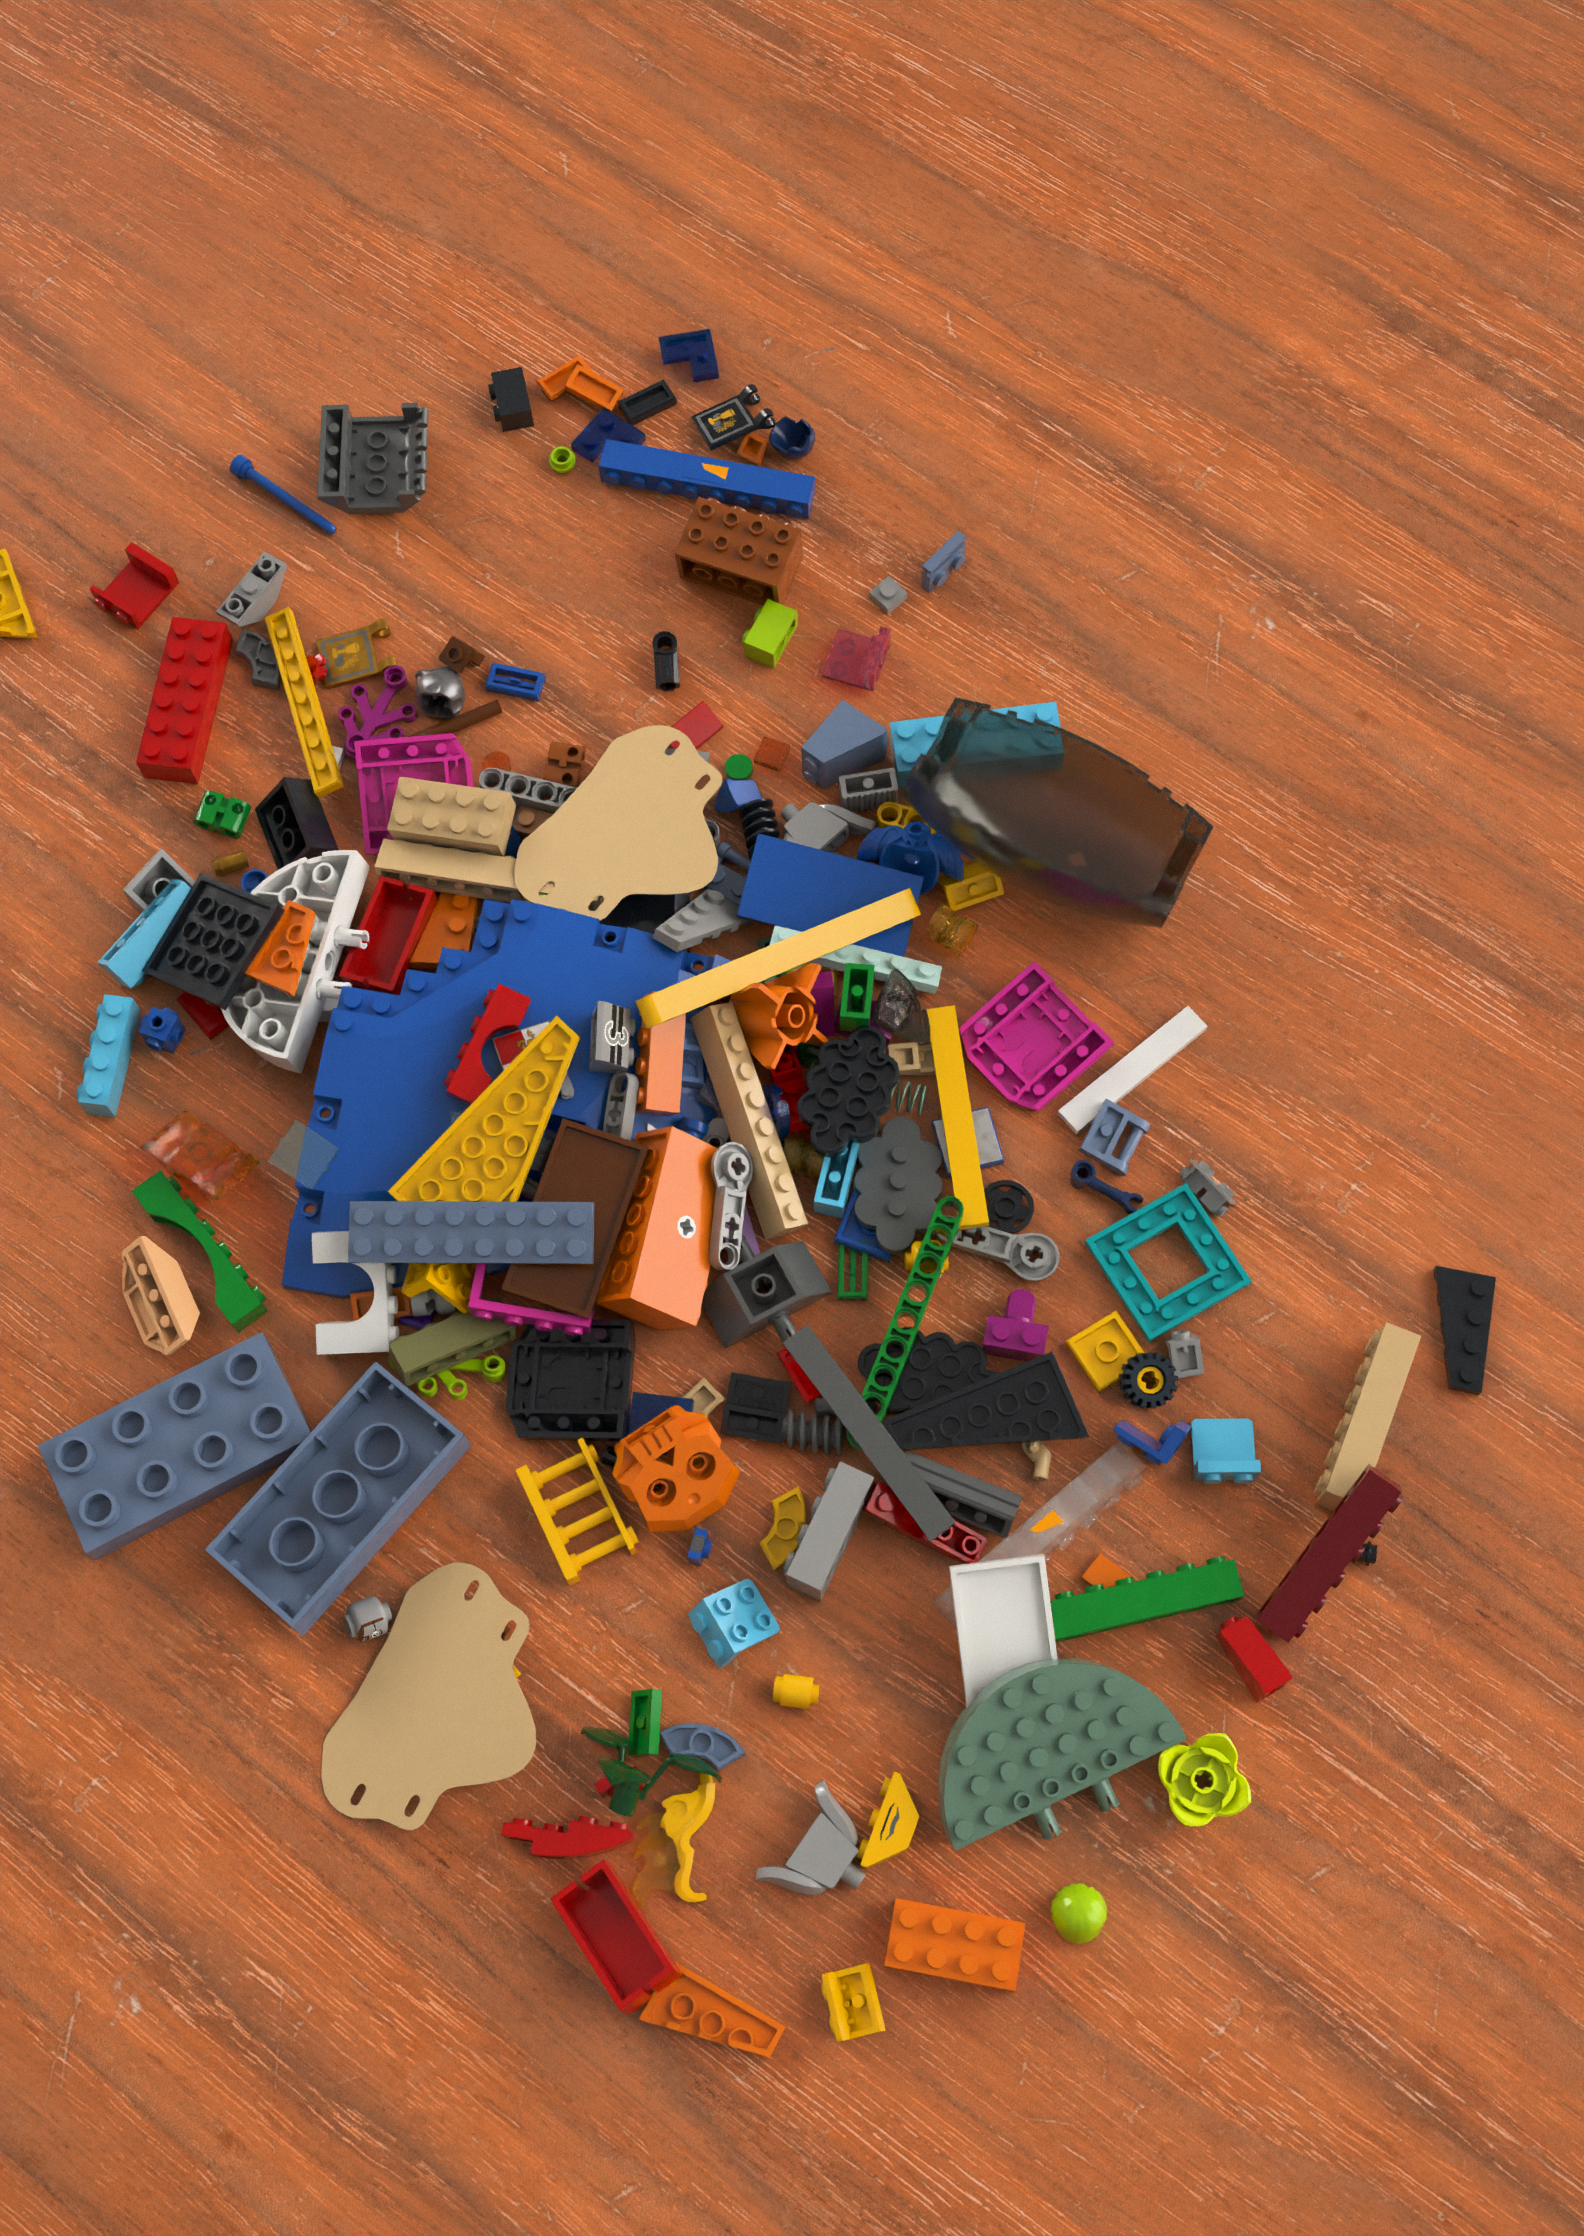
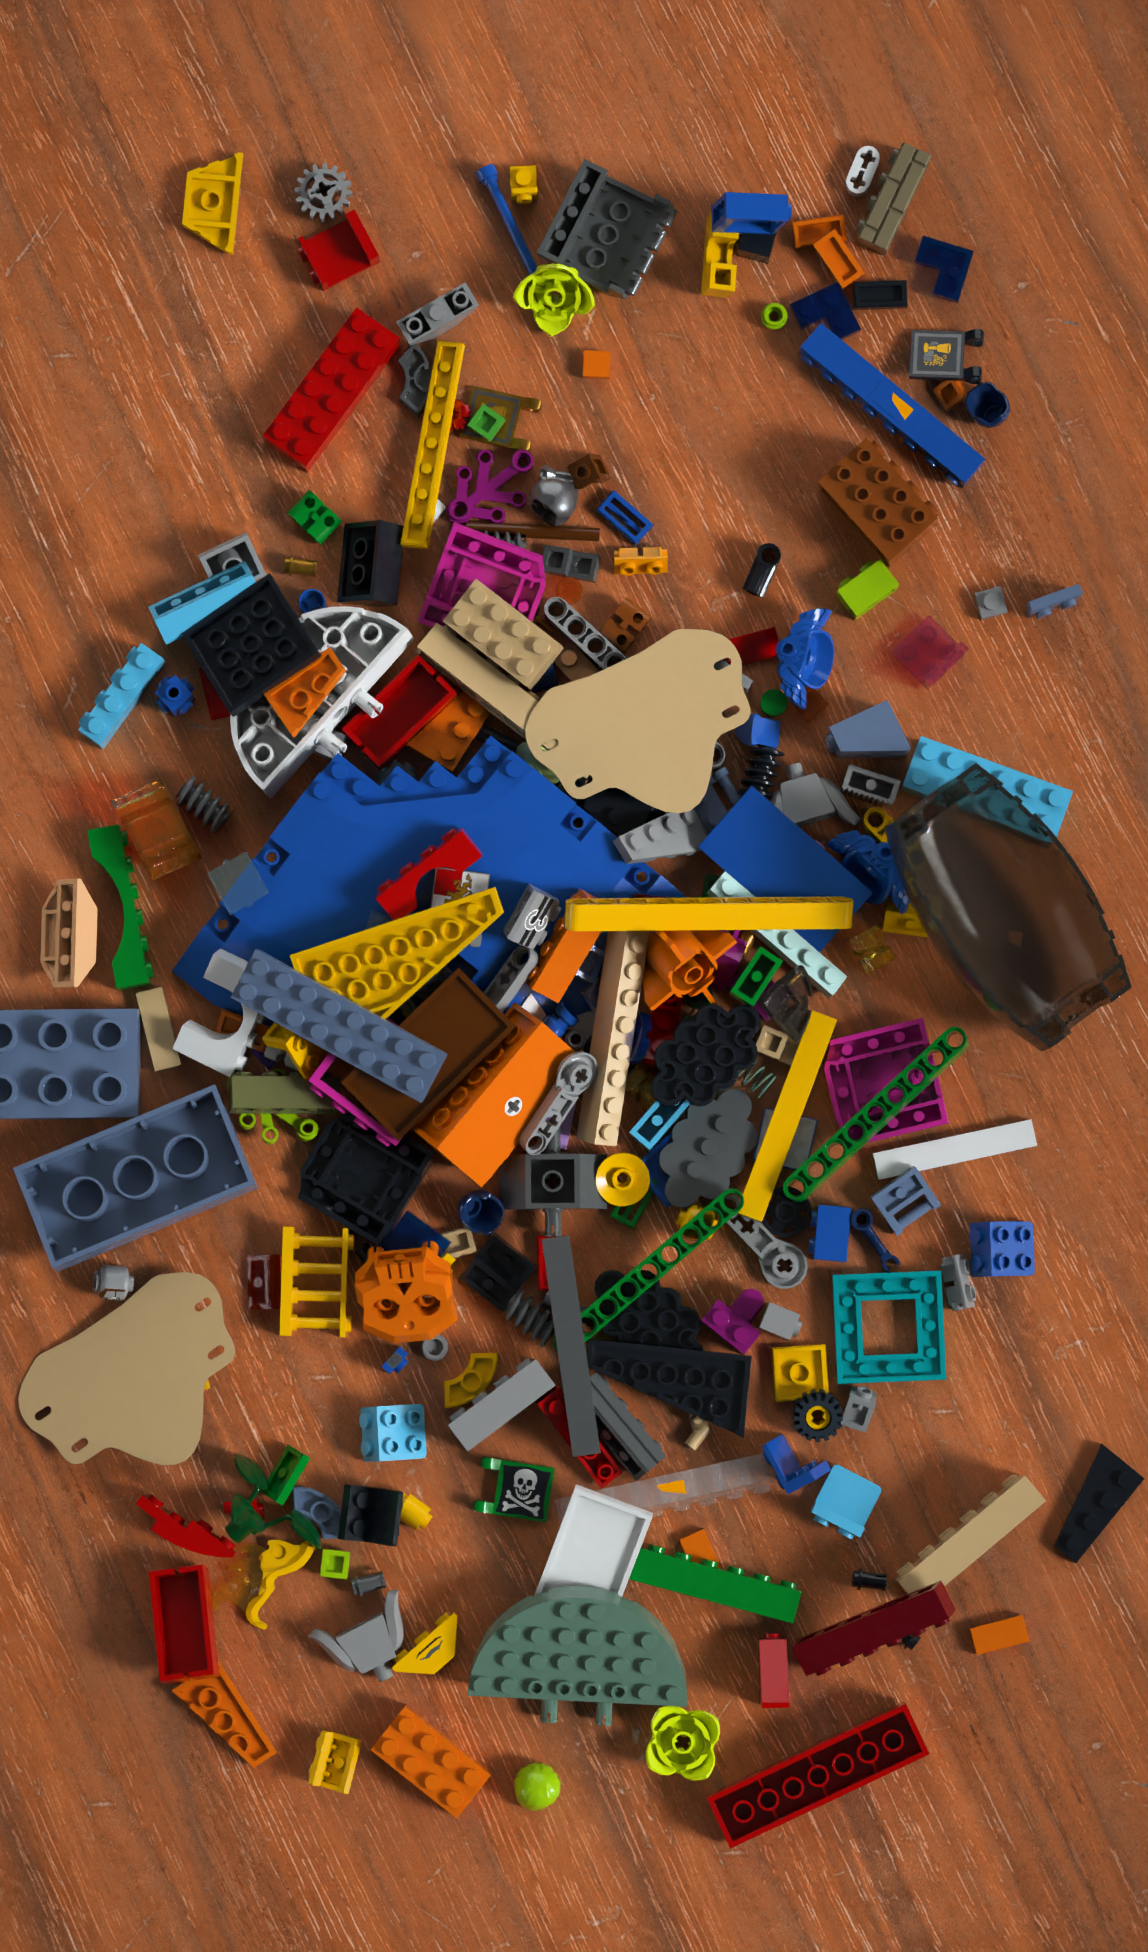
camera: 25 degrees right, 15 degrees up
(94, 546) = (332, 188): none -> light grey gear
(239, 1115) = (203, 805): none -> dark grey piece
(279, 460) = (523, 183): none -> yellow bracket
(295, 1348) = (158, 1029): none -> tan tile
(344, 659) = (486, 422): none -> bright green plate
(356, 546) = (551, 310): none -> neon yellow brick
(422, 571) = (596, 364): none -> orange tile
(480, 390) = (750, 213): none -> blue window
(481, 743) = (569, 563): none -> dark grey slope
(490, 441) = (718, 271): none -> yellow arch
(524, 1540) = (264, 1282): none -> clear red slope
(551, 710) = (652, 562): none -> light orange hinge
(573, 317) = (867, 173): none -> white beam
(616, 322) = (893, 198): none -> dark tan brick
(708, 1355) = (480, 1212): none -> dark blue hair
(732, 1515) = (435, 1348): none -> light grey tile
(744, 1789) = (335, 1563): none -> lime plate
(745, 710) = (805, 656): none -> blue piece
(755, 1716) = (370, 1515): none -> black bracket
(788, 1791) = (368, 1583): none -> dark grey pin
(846, 1250) = (624, 1192): none -> yellow dish
(894, 1611) = (520, 1490): none -> flag
(1041, 1081) = (881, 1101): none -> green beam
(1061, 1203) = (831, 1233): none -> blue brick
(1061, 1306) = (780, 1322): none -> light grey brick
(1229, 1135) = (1002, 1248): none -> blue bracket
(1292, 1516) = (869, 1580): none -> black pin
(1357, 1741) = (817, 1774): none -> red brick
(1450, 1502) = (999, 1634): none -> orange tile

